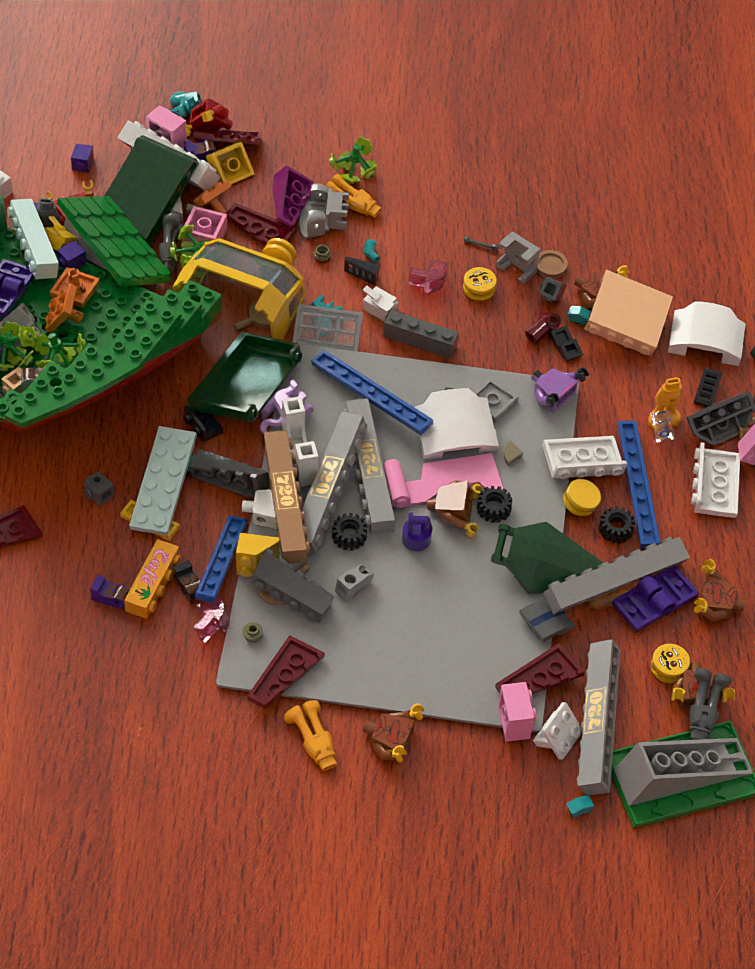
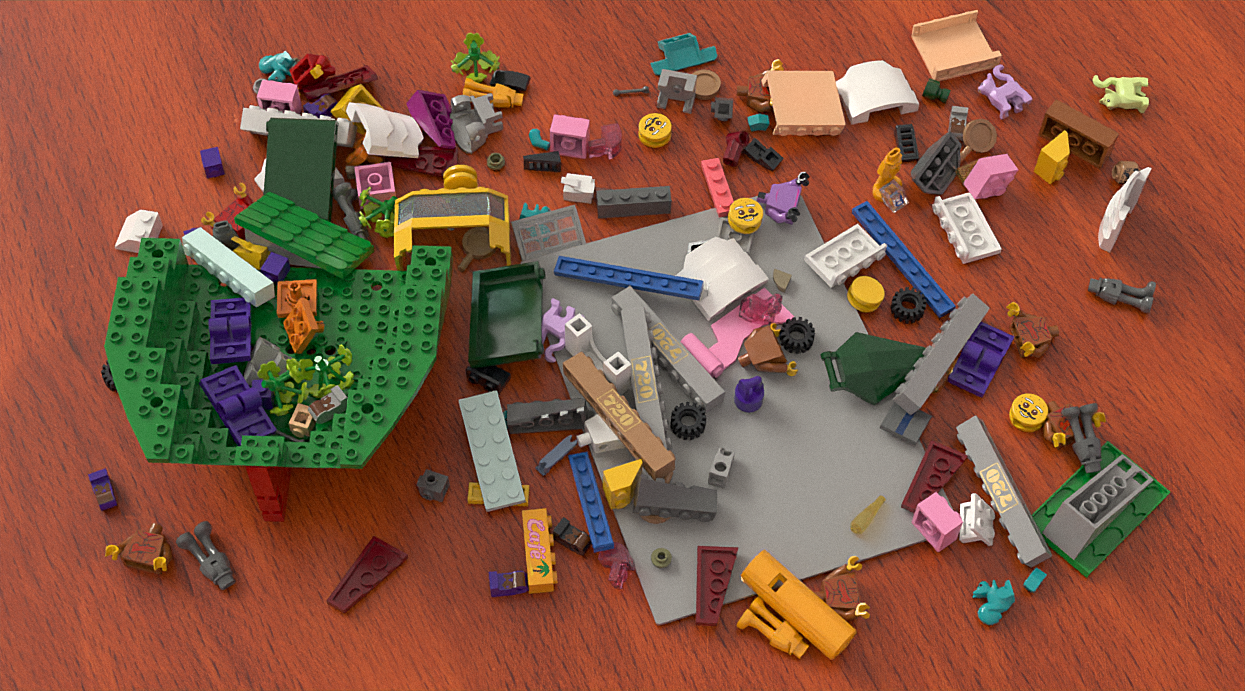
camera: 25 degrees left, 5 degrees up
(220, 509) = (555, 455): none -> sand blue piece
(239, 188) = (386, 131): none -> white slope
(345, 722) = (798, 605): none -> light orange piece
(379, 192) = (511, 79): none -> black slope
(396, 256) = (570, 136): none -> bright pink brick
(456, 681) = (865, 517): none -> clear yellow piece
(471, 467) = (759, 310): none -> clear pink brick
(506, 354) = (717, 186): none -> coral plate
(510, 384) = (745, 215): none -> yellow head
(535, 805) = (998, 600): none -> teal animal
(548, 230) = (682, 53): none -> teal plate

